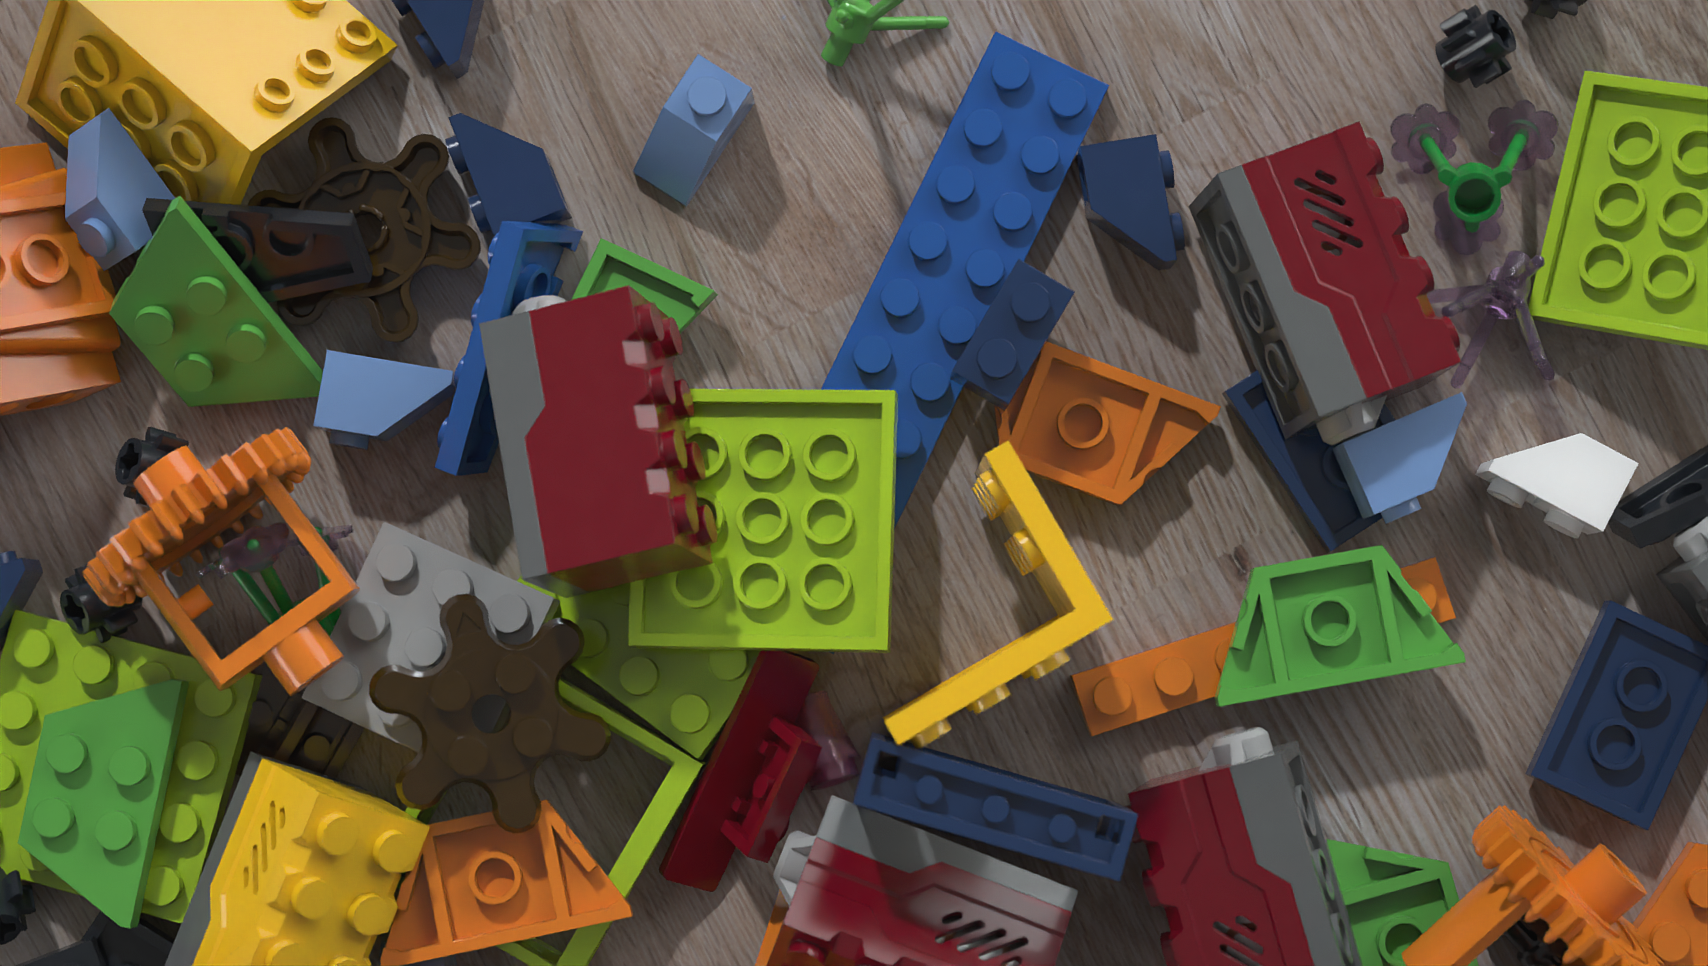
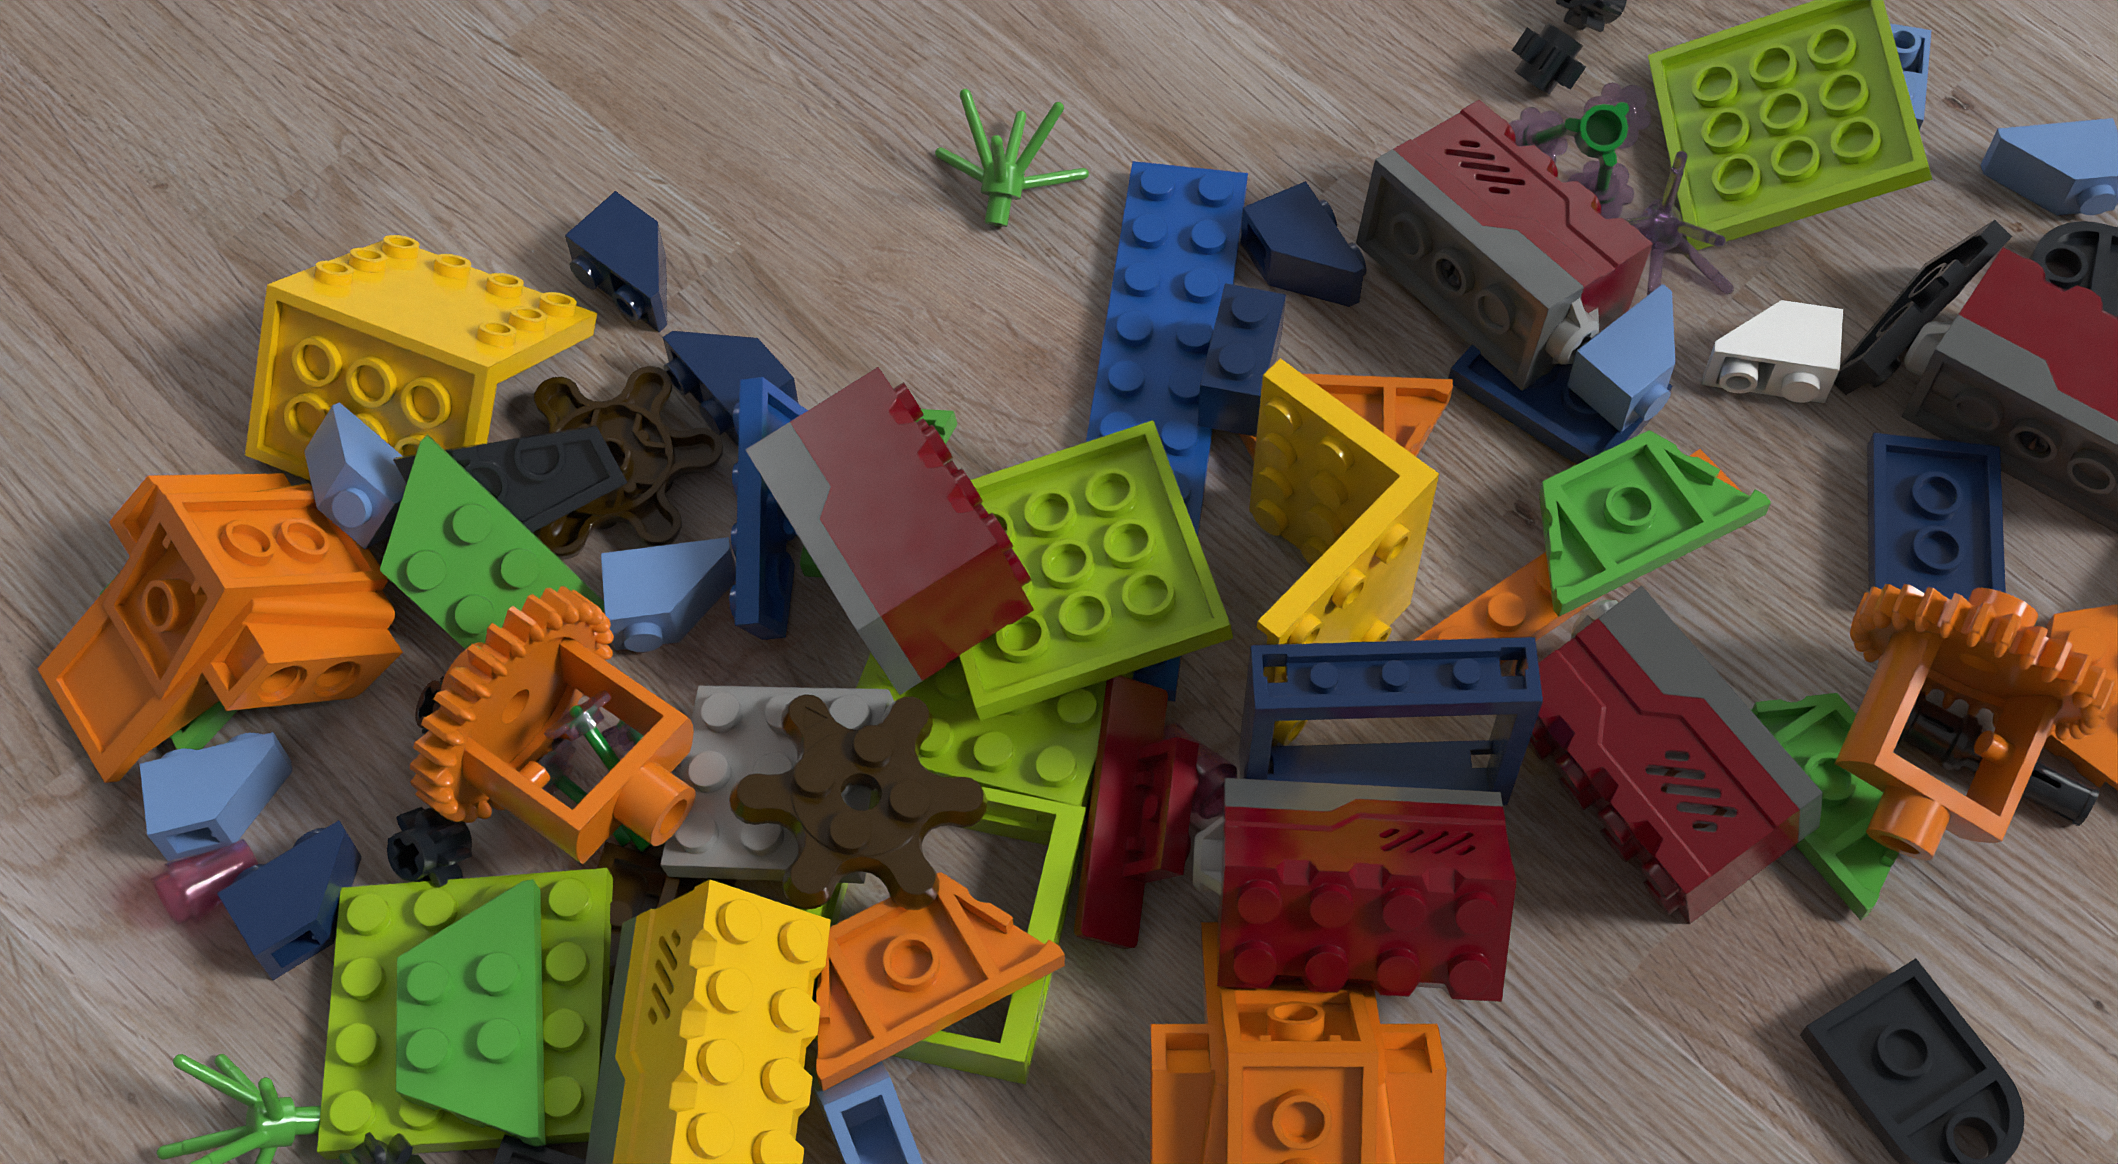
camera: 20 degrees left, 25 degrees down
(693, 129) = (891, 298): medium blue slope -> none

